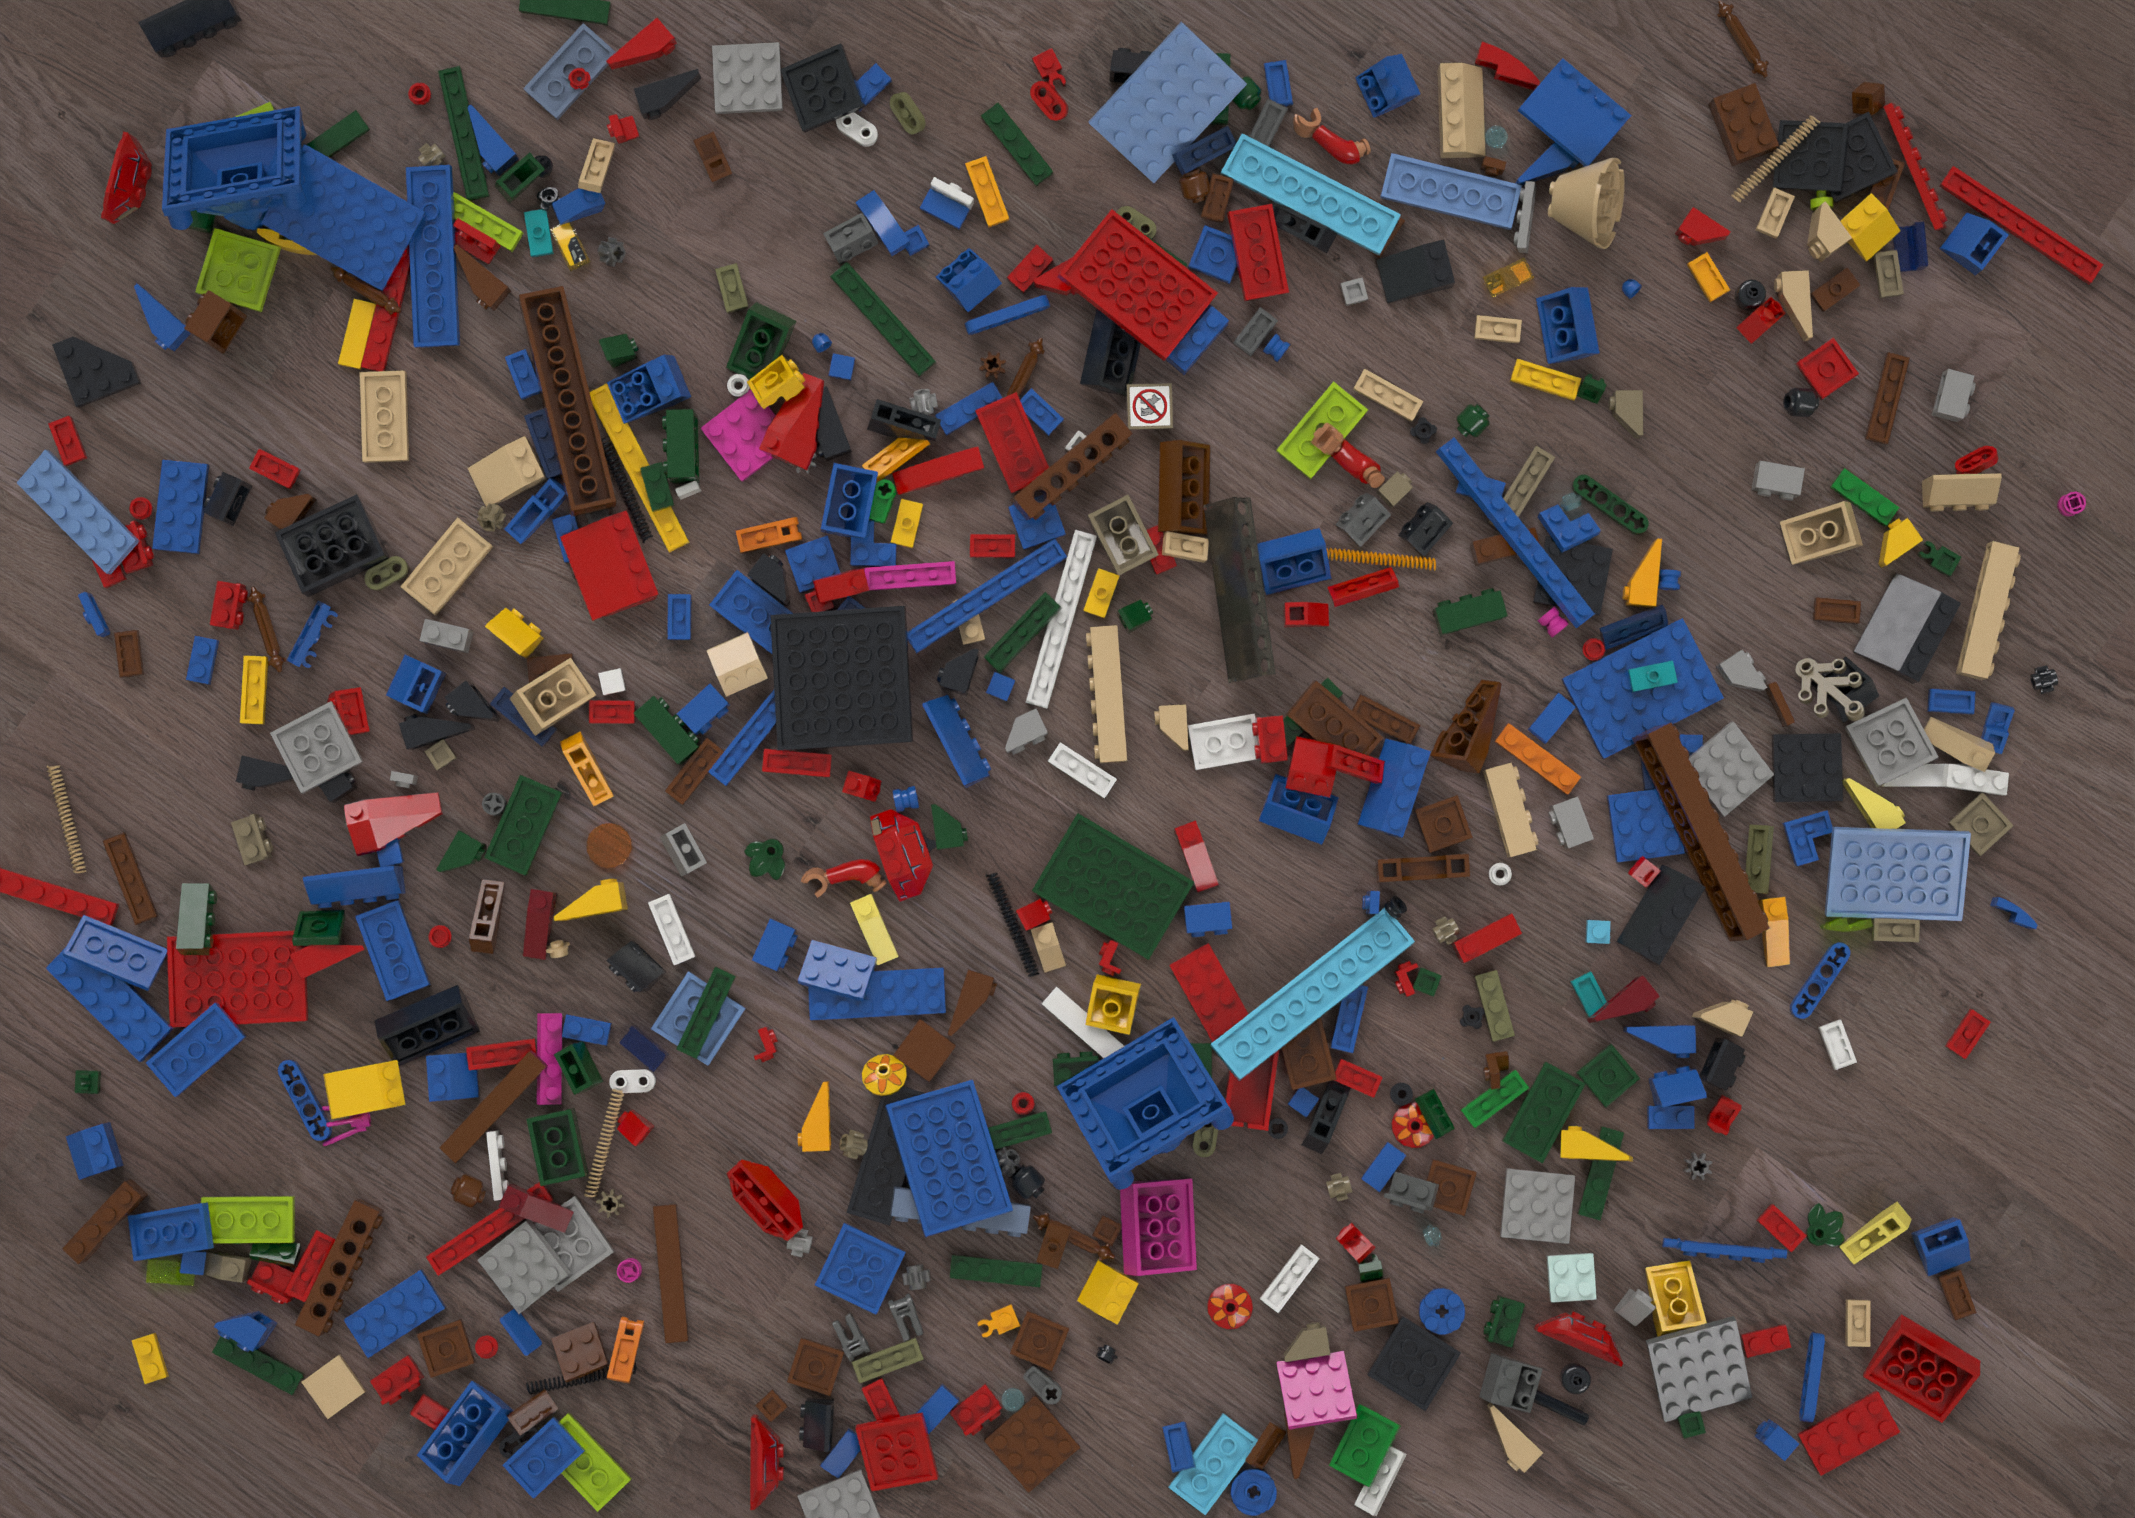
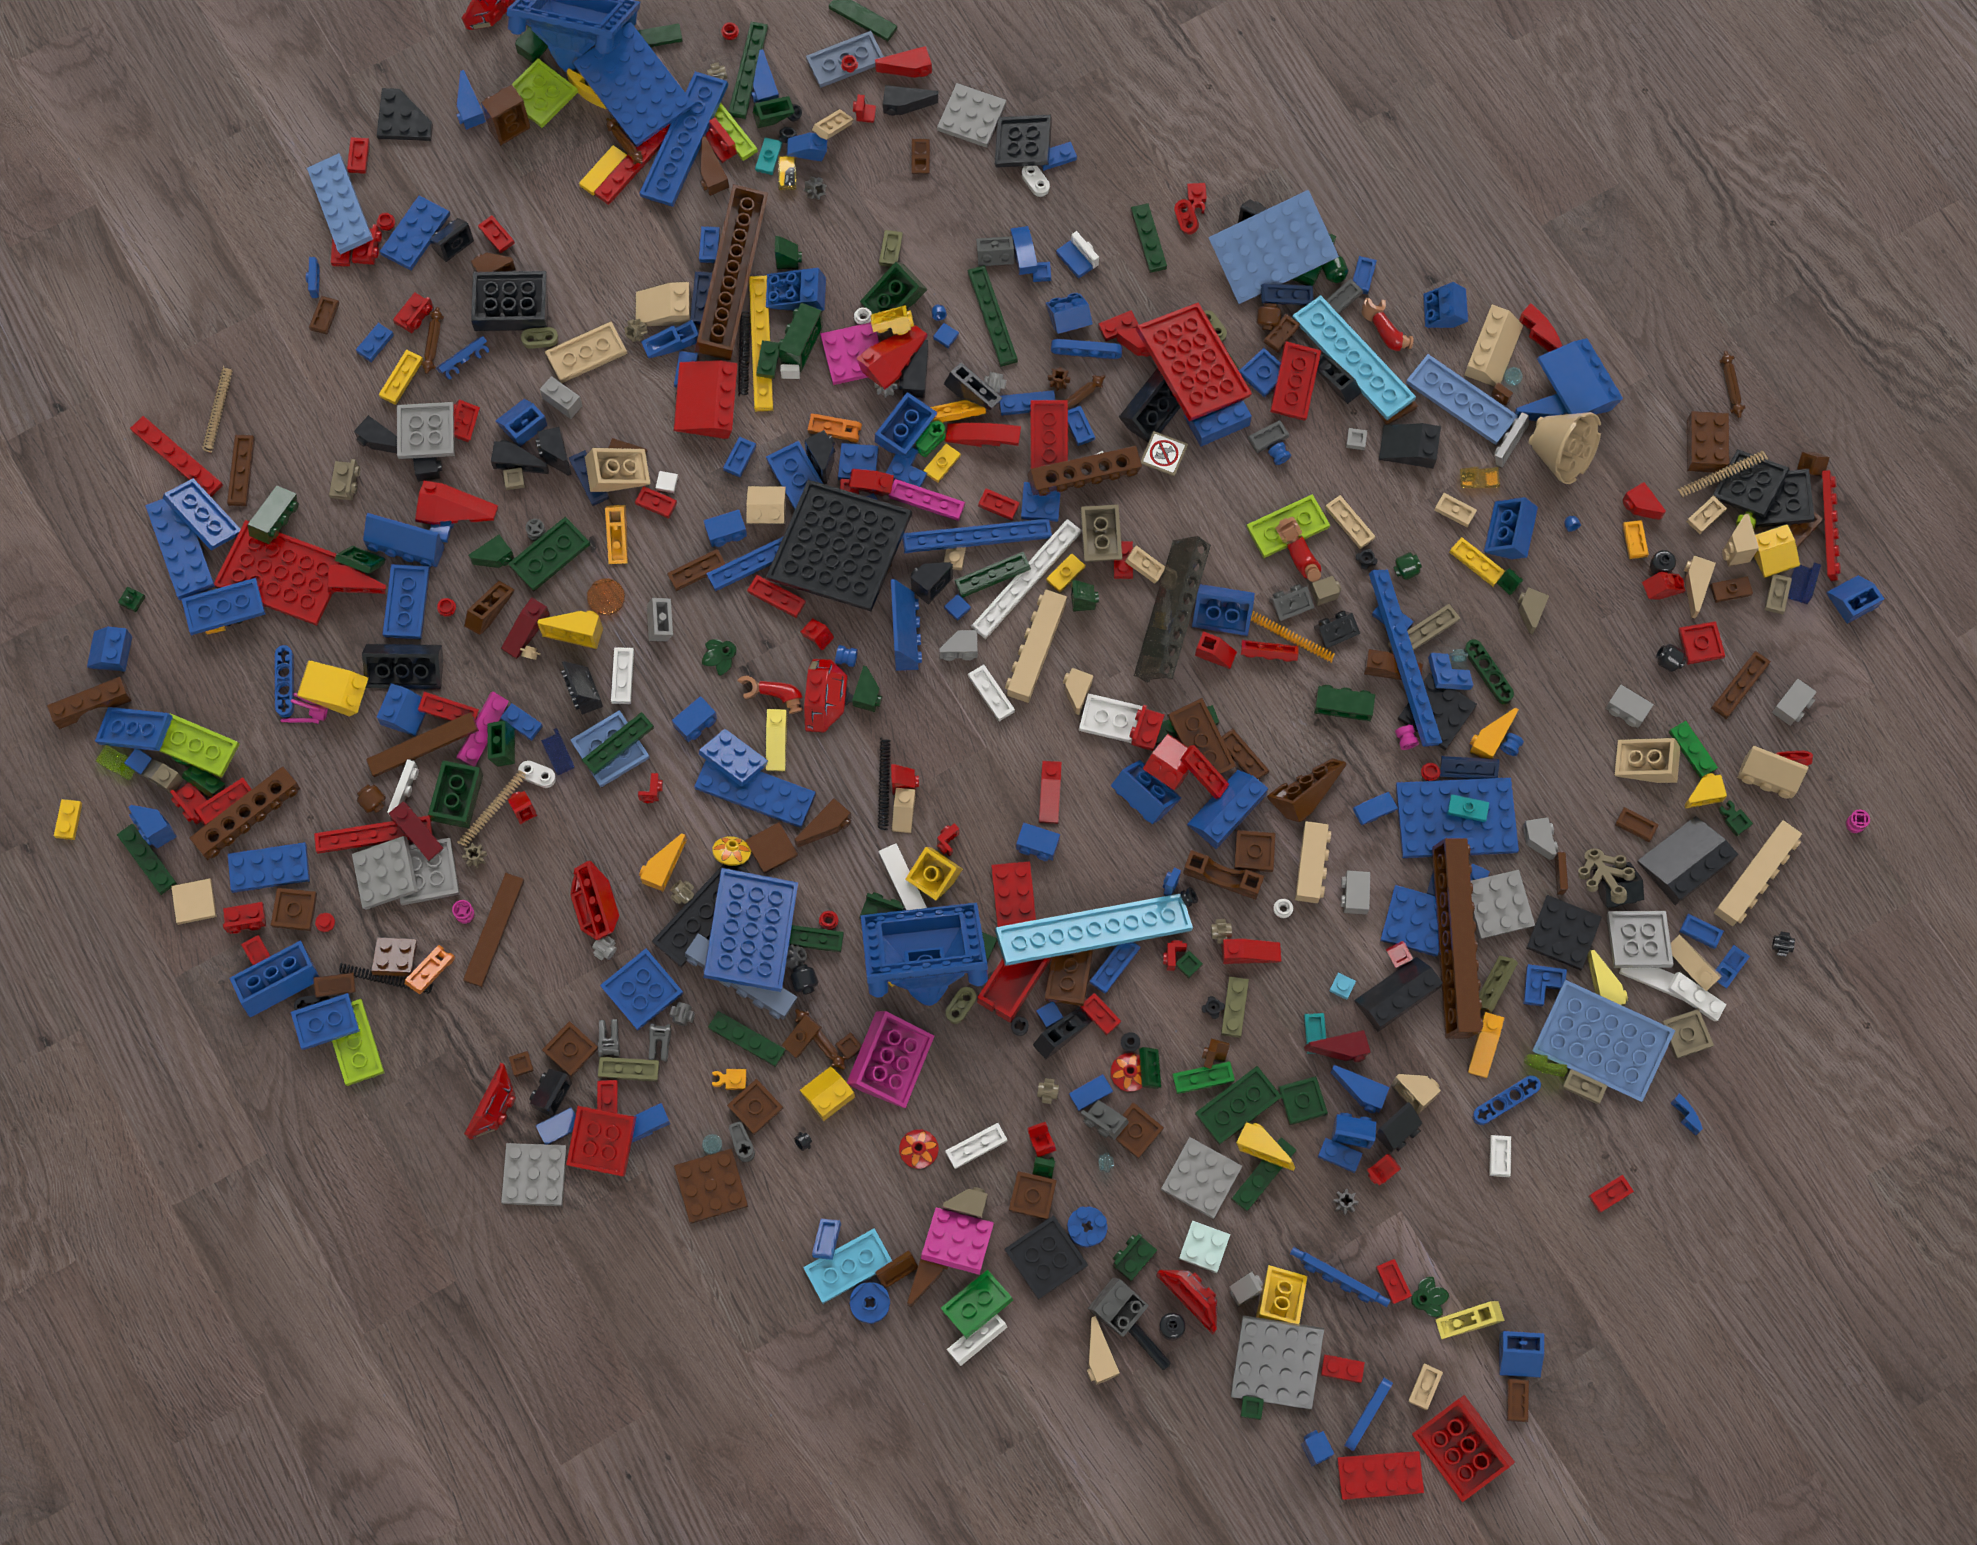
camera: 25 degrees right, 15 degrees down
(384, 416) = (593, 231): tan plate -> none
(403, 779) = (477, 483): light grey plate -> none
(515, 632) = (612, 415): yellow slope -> none
(521, 1332) = (357, 922): blue slope -> none
(667, 729) = (691, 530): dark green brick -> none
(907, 114) = (1077, 183): olive plate -> none
(976, 1410) = (679, 1139): red bracket -> none
(987, 191) = (1111, 259): light orange plate -> none
(1113, 886) = (975, 788): dark green plate -> none
(1183, 486) = (1164, 520): reddish brown slope -> none
(1537, 759) = (1350, 835): orange plate -> none
(2021, 225) = (1898, 602): red plate -> none

